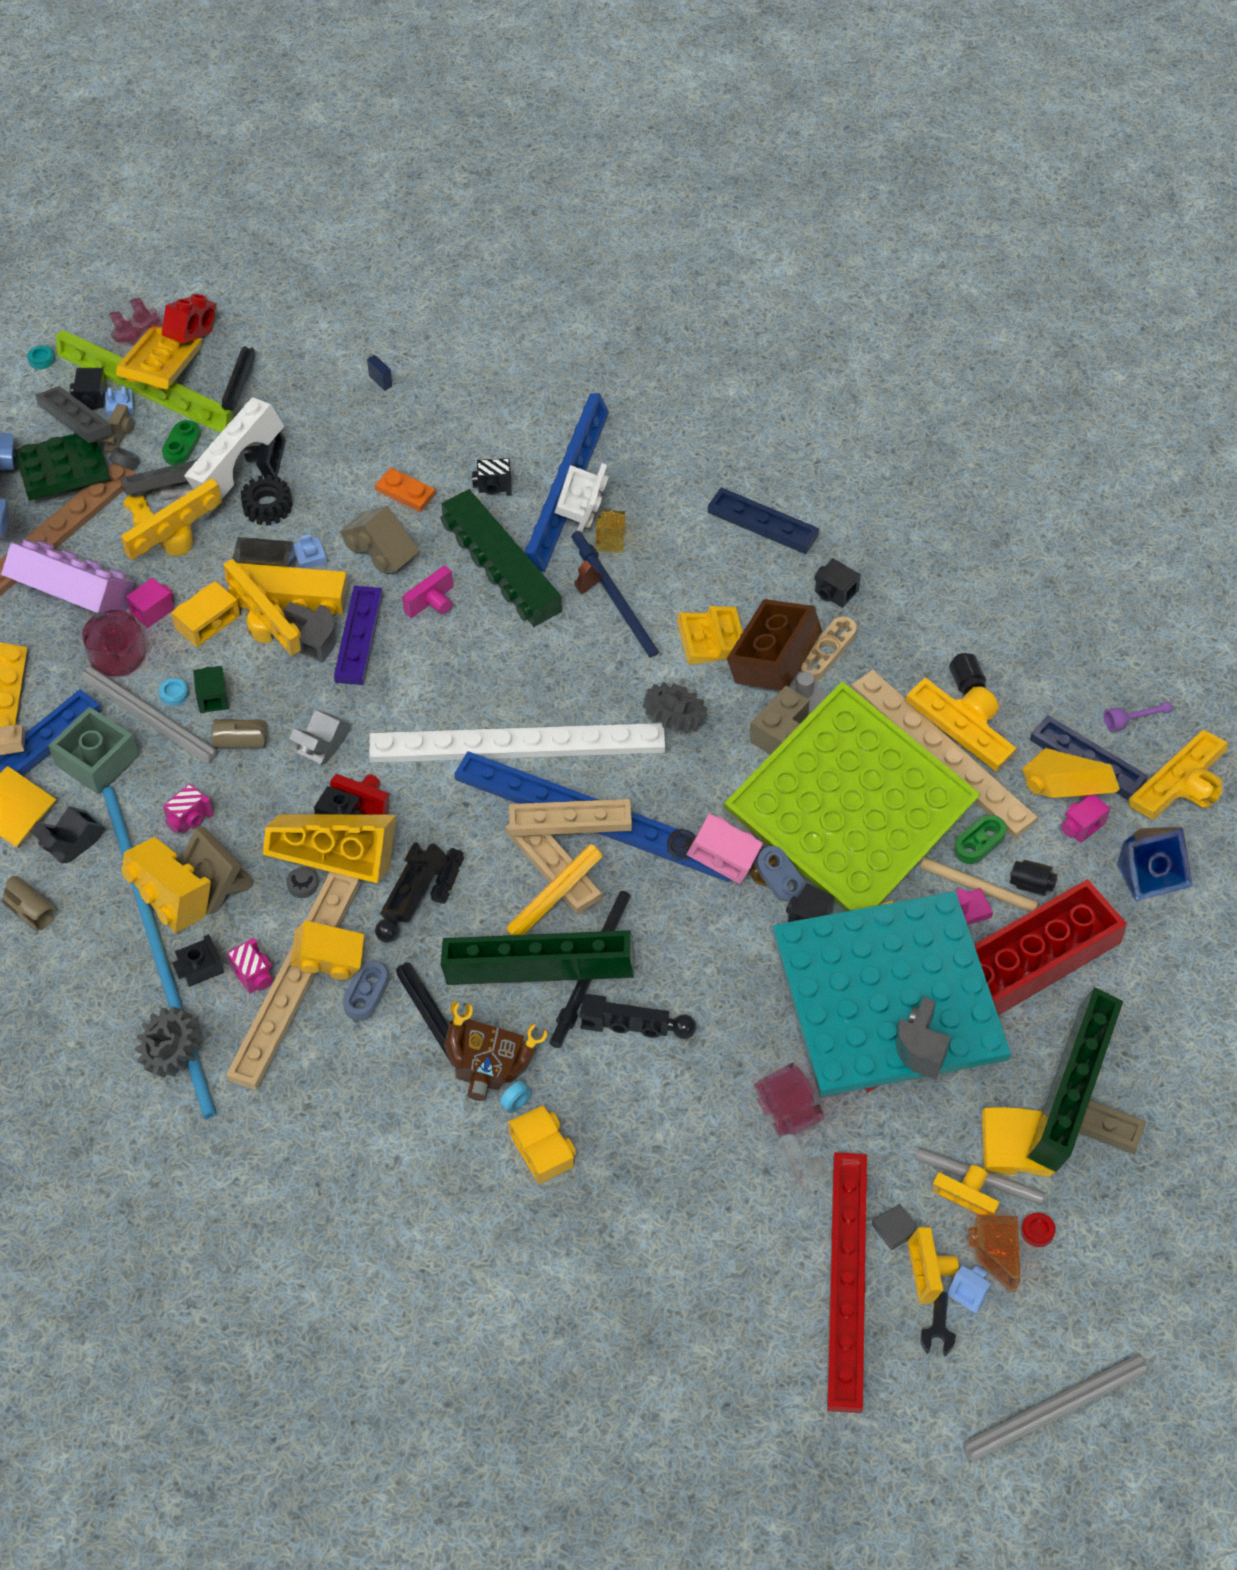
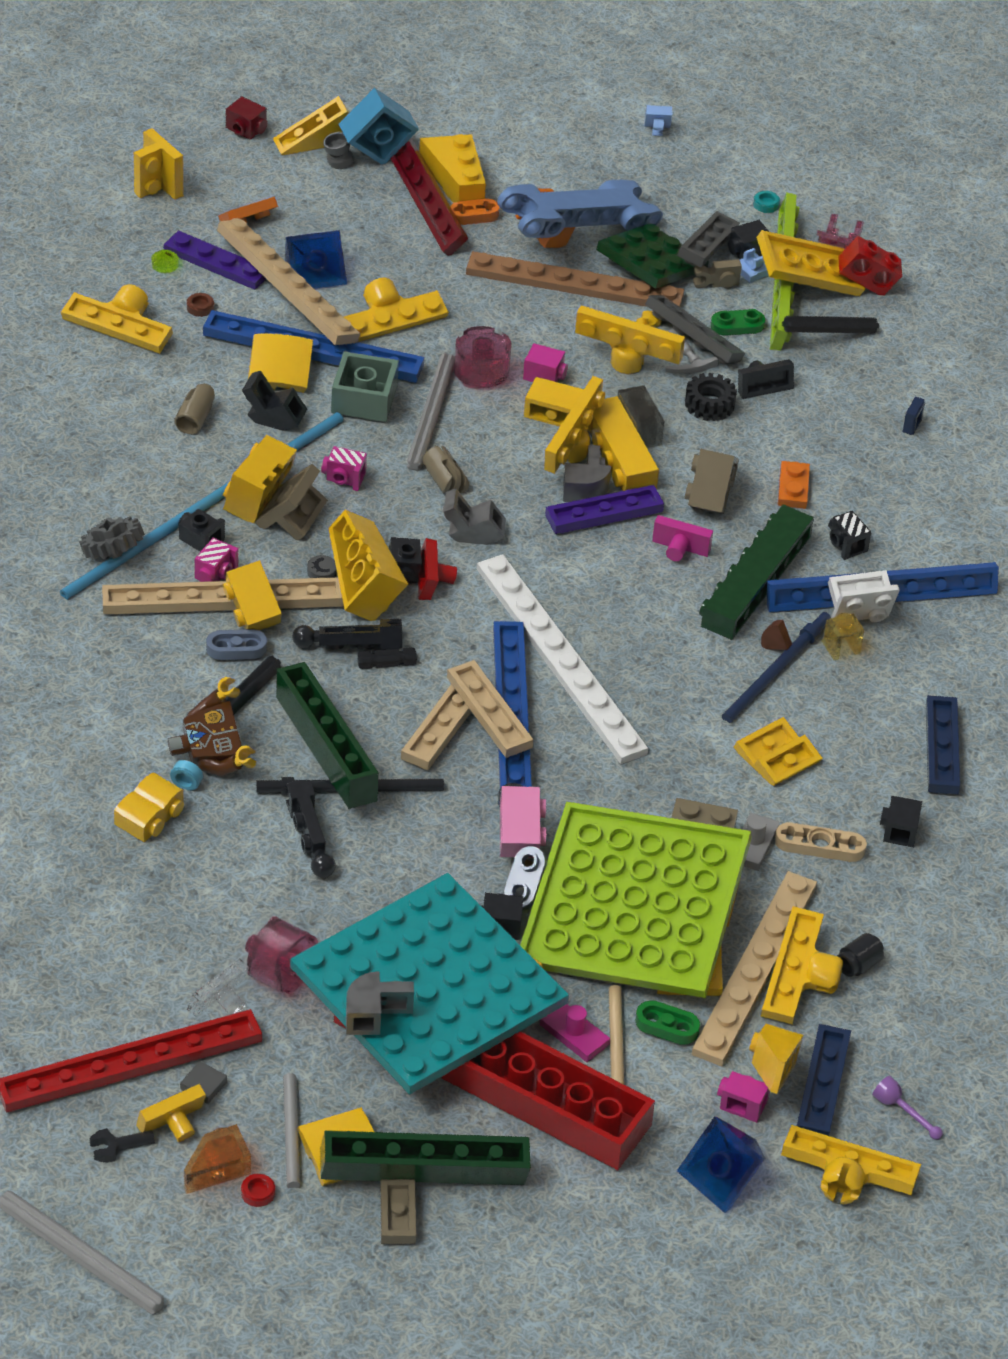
camera: 60 degrees right, 10 degrees down
(67, 576) = (525, 298): lavender brick -> none
(124, 458) = (689, 291): dark grey tile -> none
(173, 691) = (465, 418): medium azure tile -> none
(211, 689) = (478, 436): dark green brick -> none
(252, 424) = (770, 344): white arch -> none
(309, 552) = (674, 446): light blue tile -> none
(554, 891) = (407, 726): yellow axle -> none
(674, 707) = (666, 745): dark grey gear -> none
(774, 644) = (784, 789): reddish brown brick -> none
(968, 1192) = (262, 1119): yellow tile -> none
(970, 1287) = (168, 1150): light blue tile -> none
(1033, 877) = (648, 1073): black brick -> none

